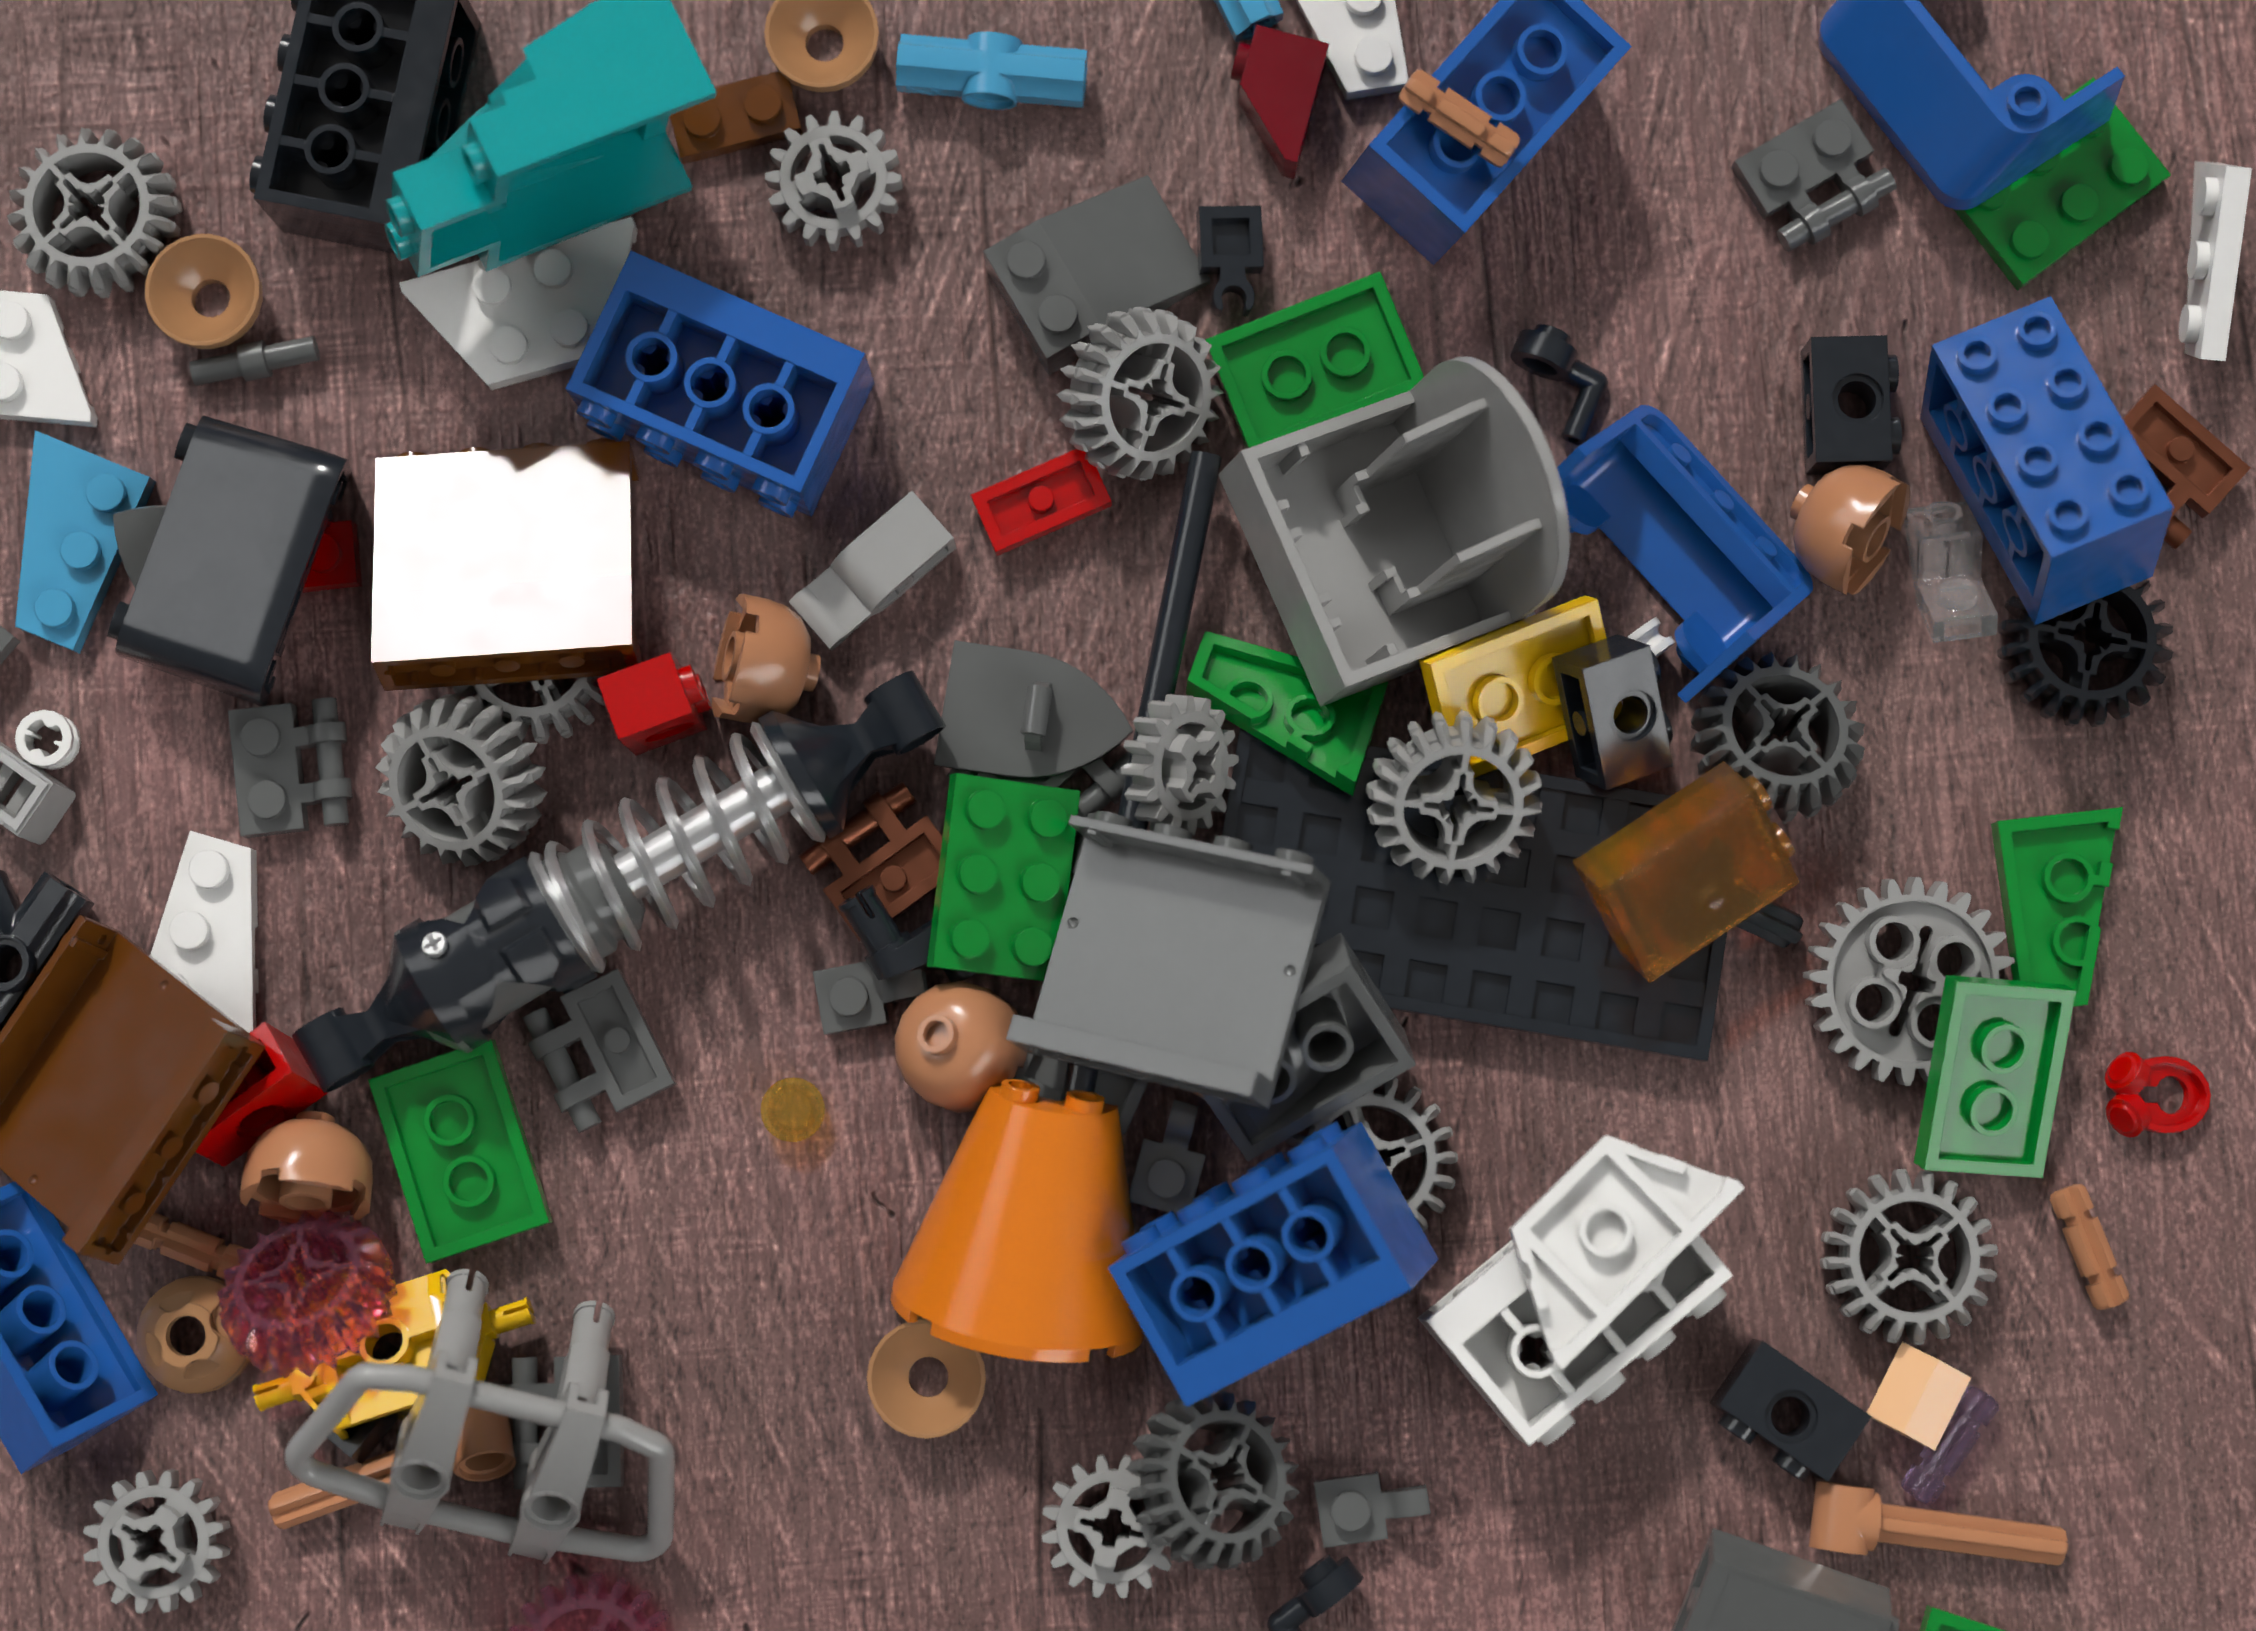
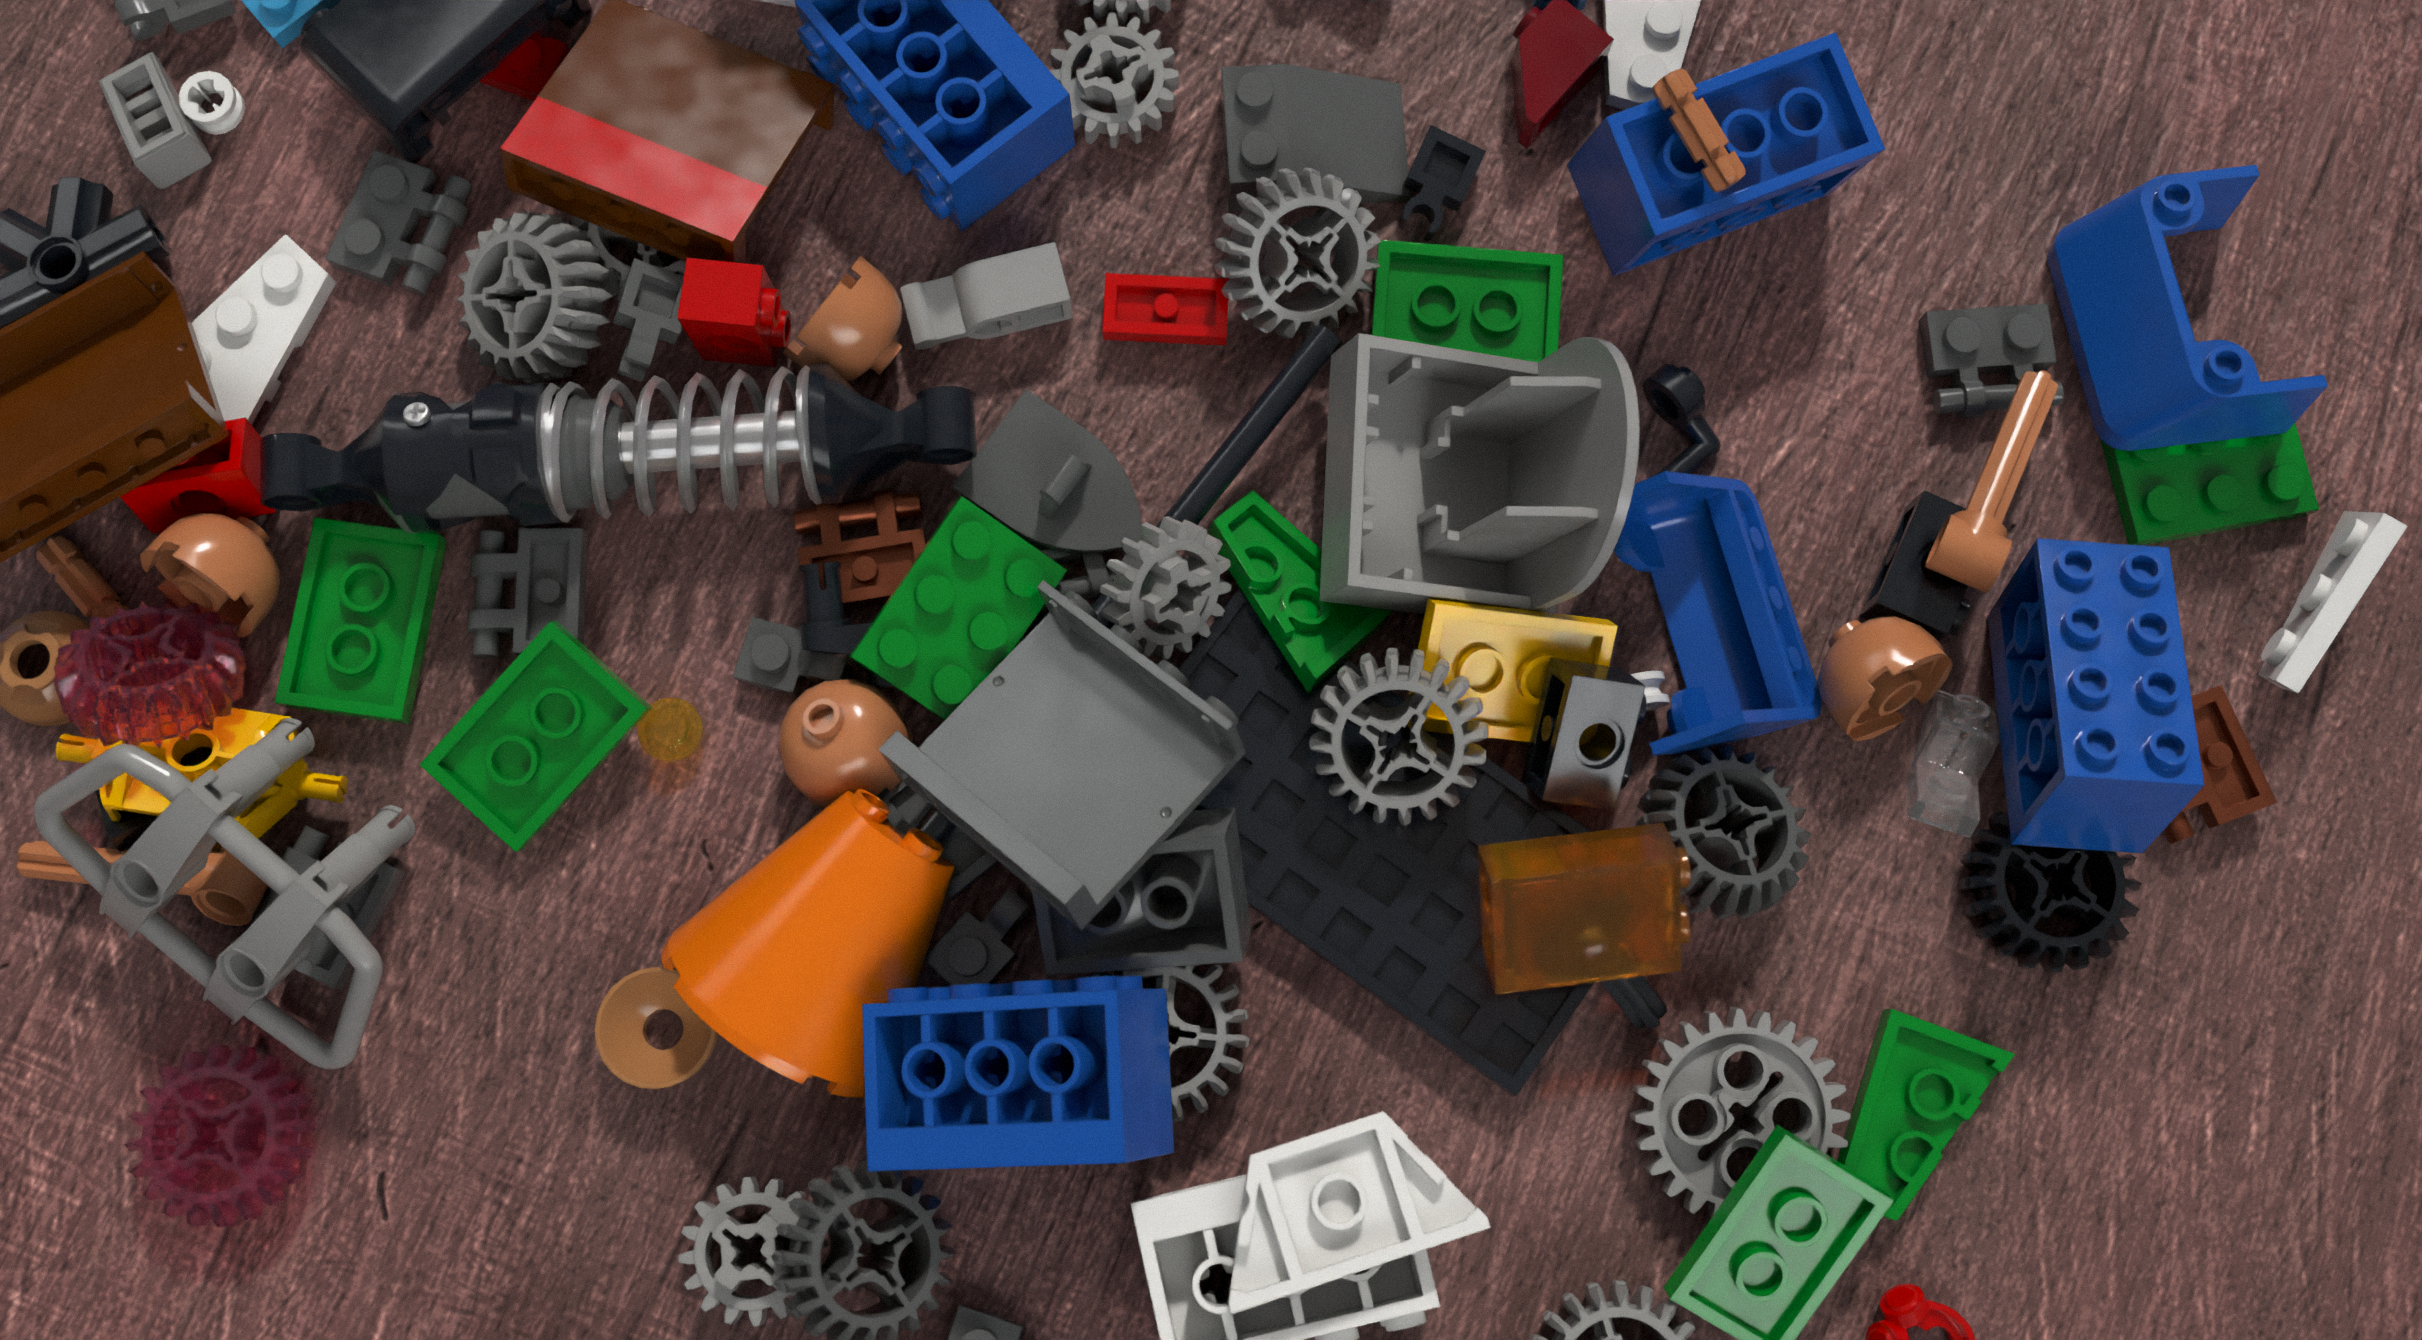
camera: 20 degrees right, 5 degrees down
(582, 738) = (651, 311): none -> dark grey plate
(680, 1176) = (535, 736): none -> green plate
(899, 284) = (1132, 63): none -> light grey gear
(1876, 369) = (1974, 541): none -> nougat axle

